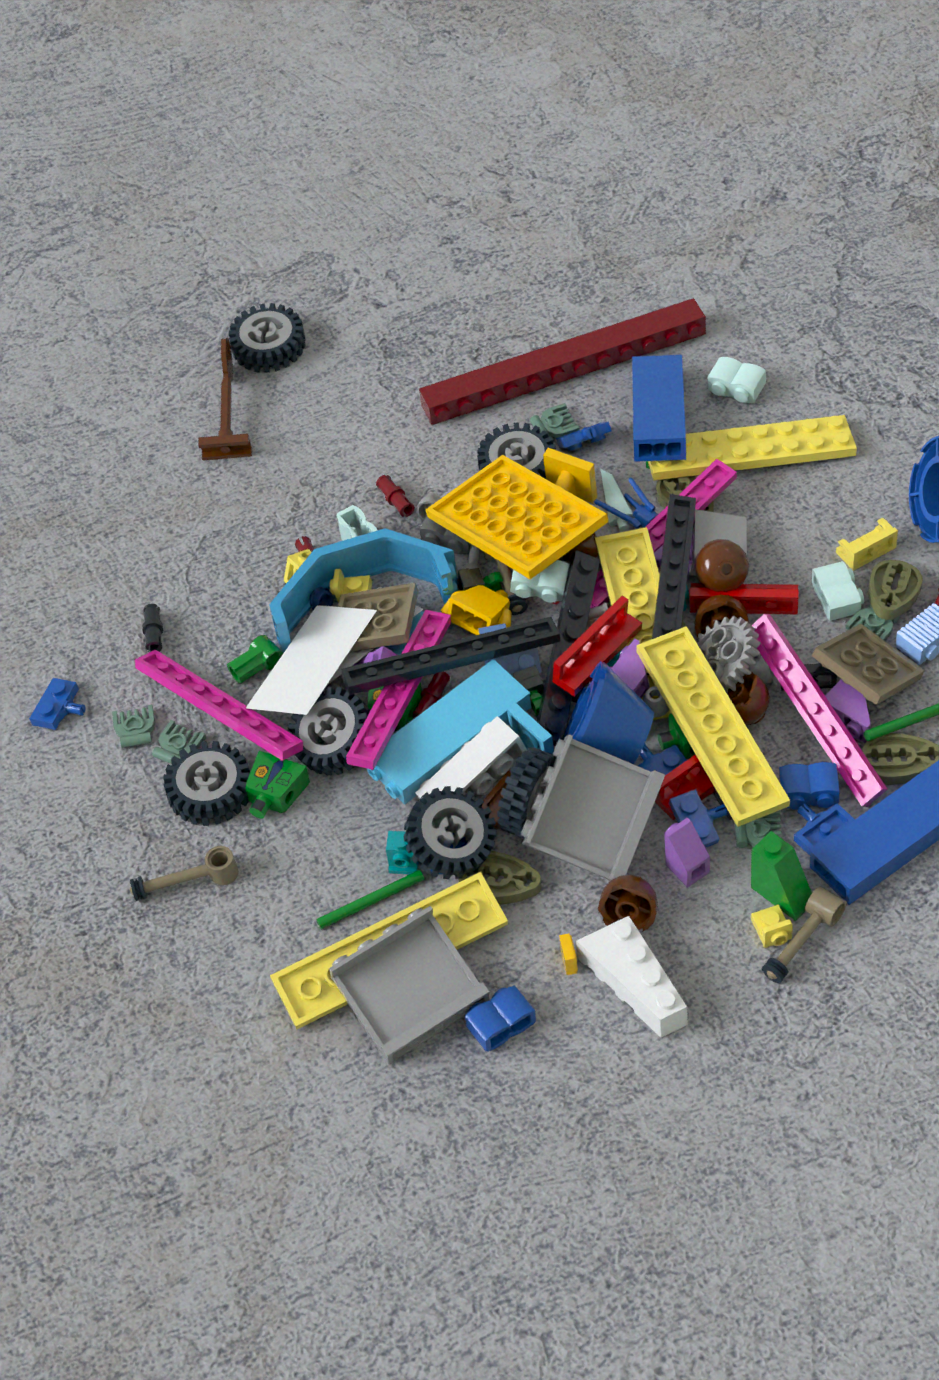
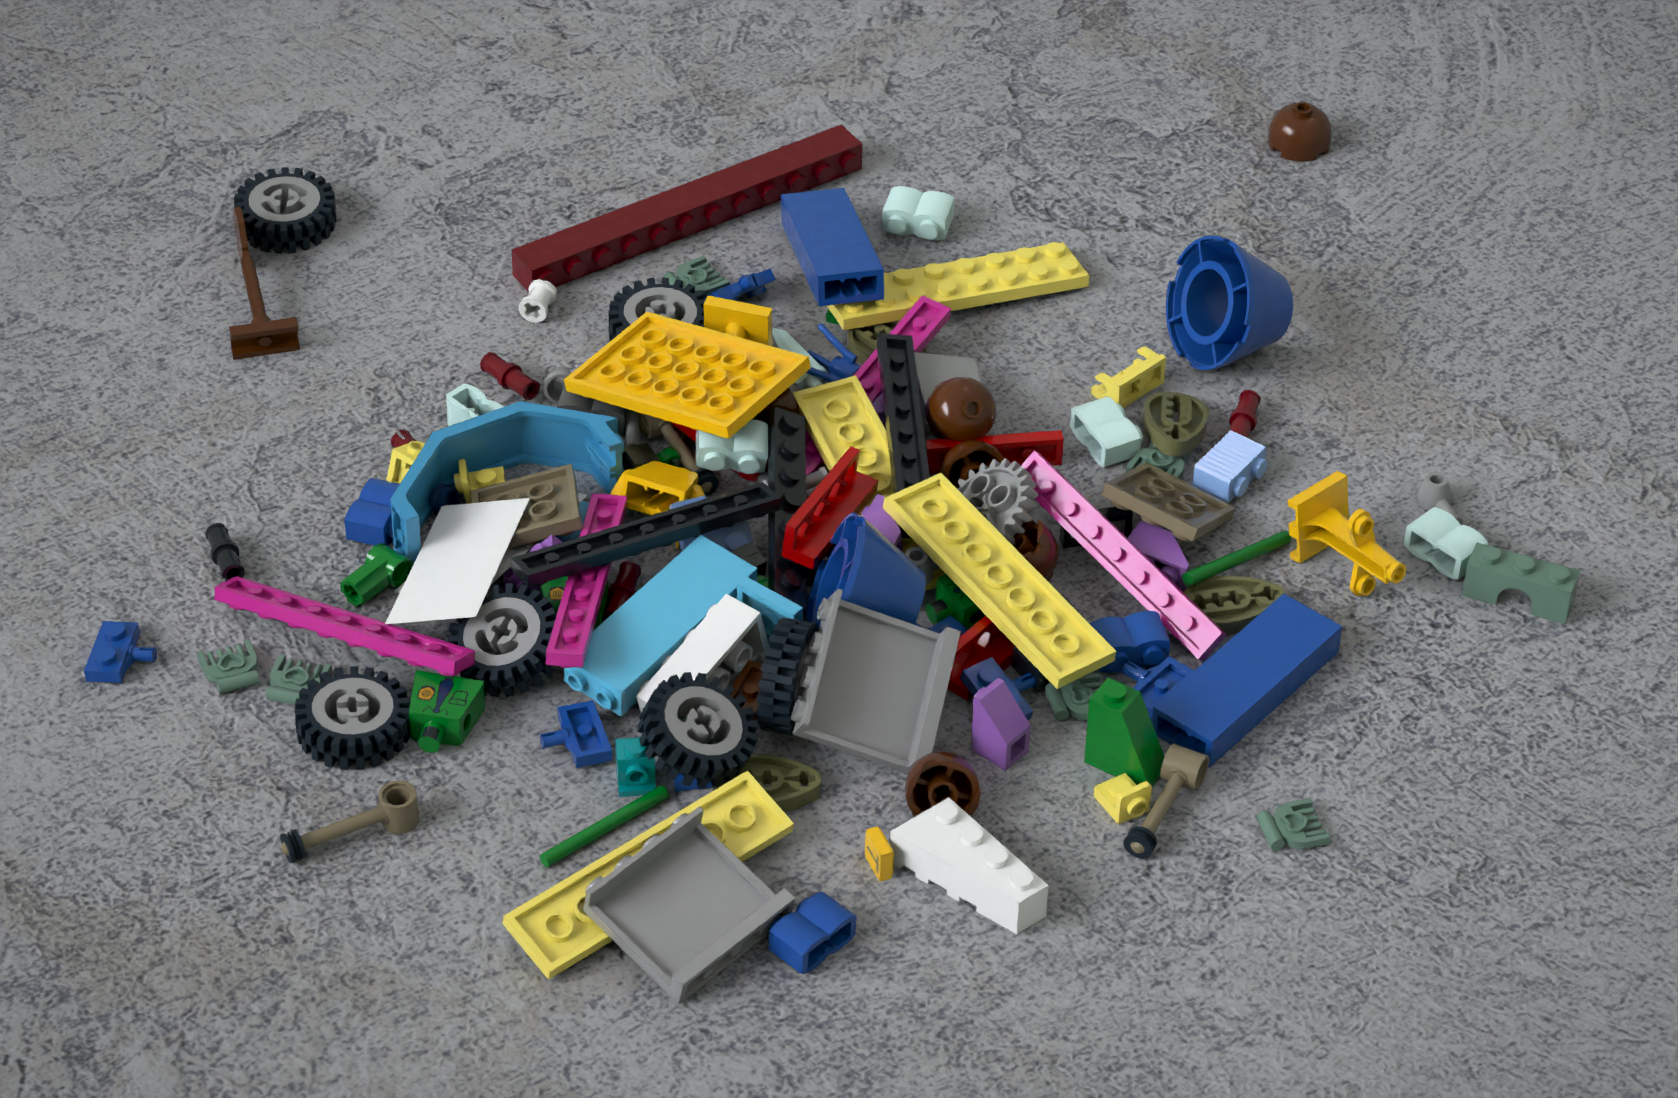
camera: 20 degrees left, 10 degrees down
(257, 612) = (370, 515): none -> blue brick
(370, 817) = (581, 734): none -> blue plate
(430, 433) = (535, 305): none -> white bush
(900, 968) = (1290, 824): none -> sand green piece

